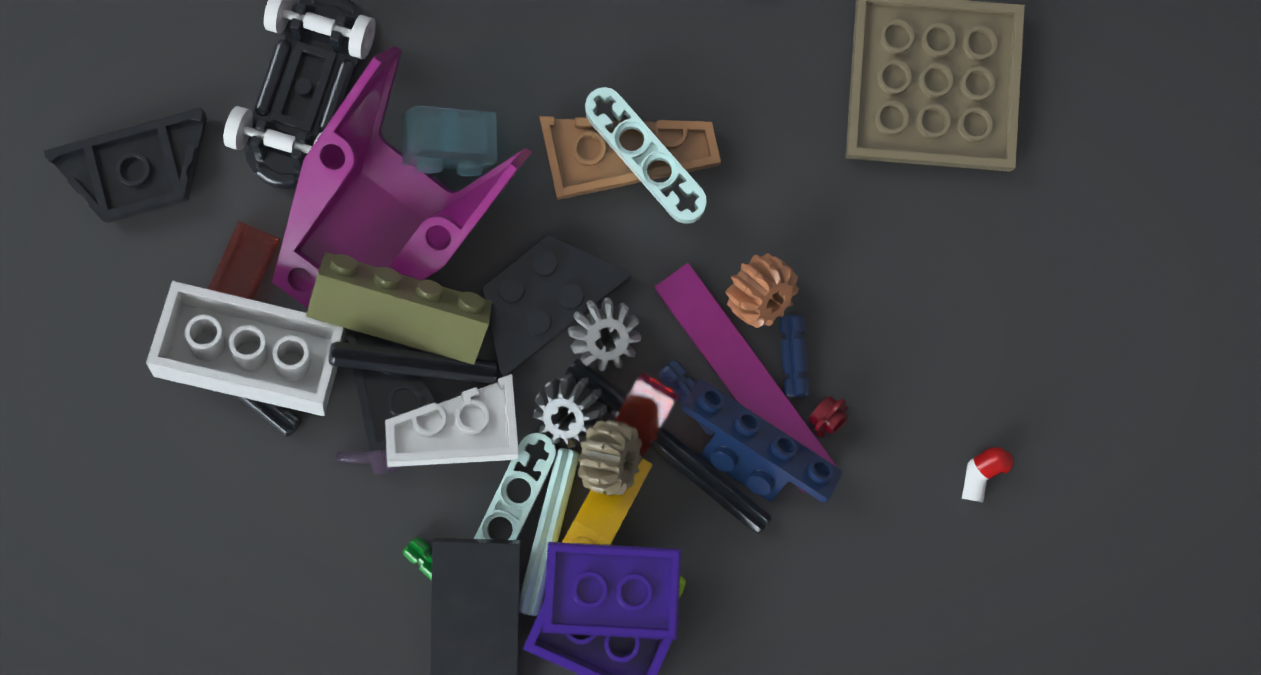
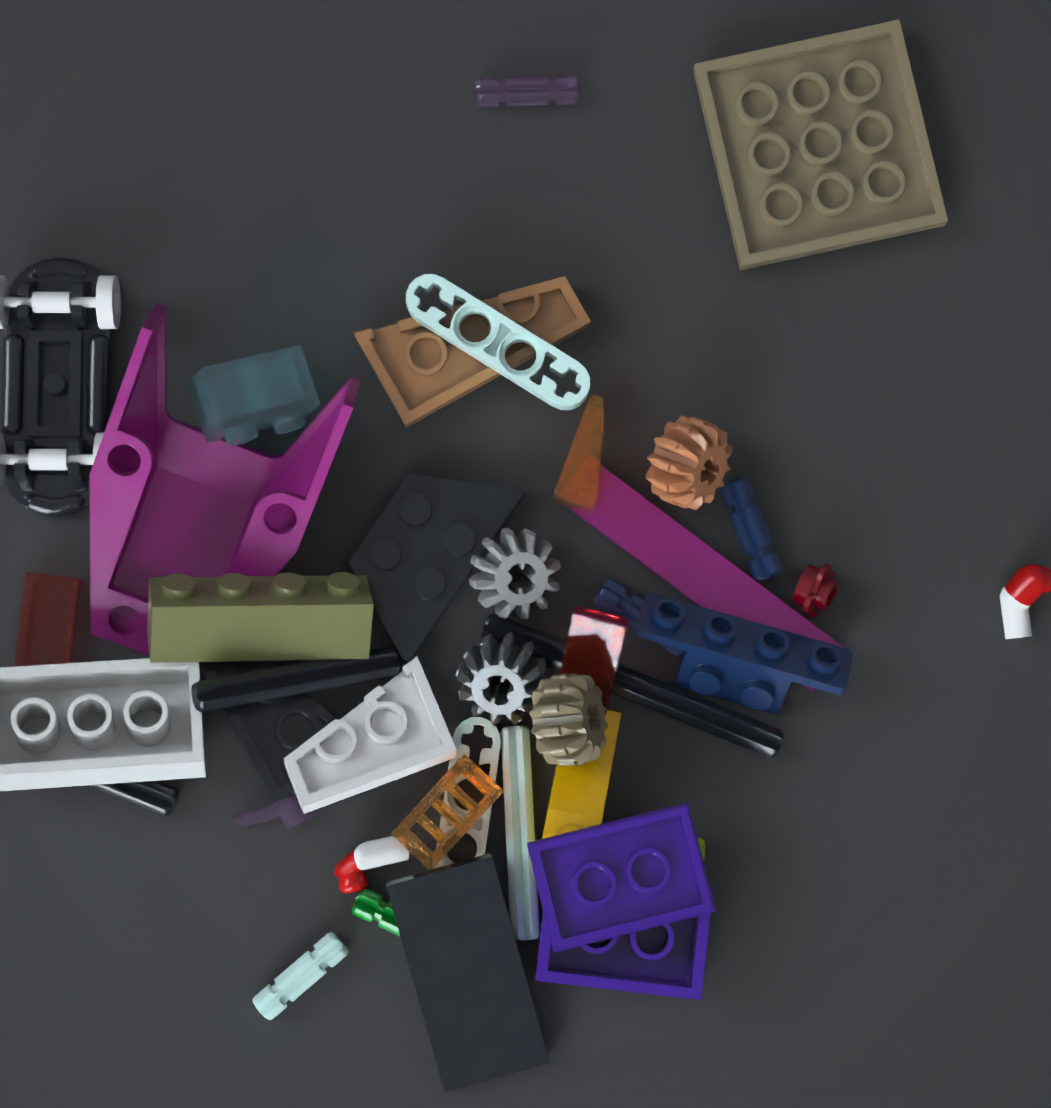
camera: 15 degrees left, 0 degrees up
(348, 588) = (300, 976): none -> light aqua axle
(427, 513) = (367, 856): none -> arm
(529, 483) = (479, 779): none -> clear orange slope
(676, 274) = (580, 474): none -> clear orange slope

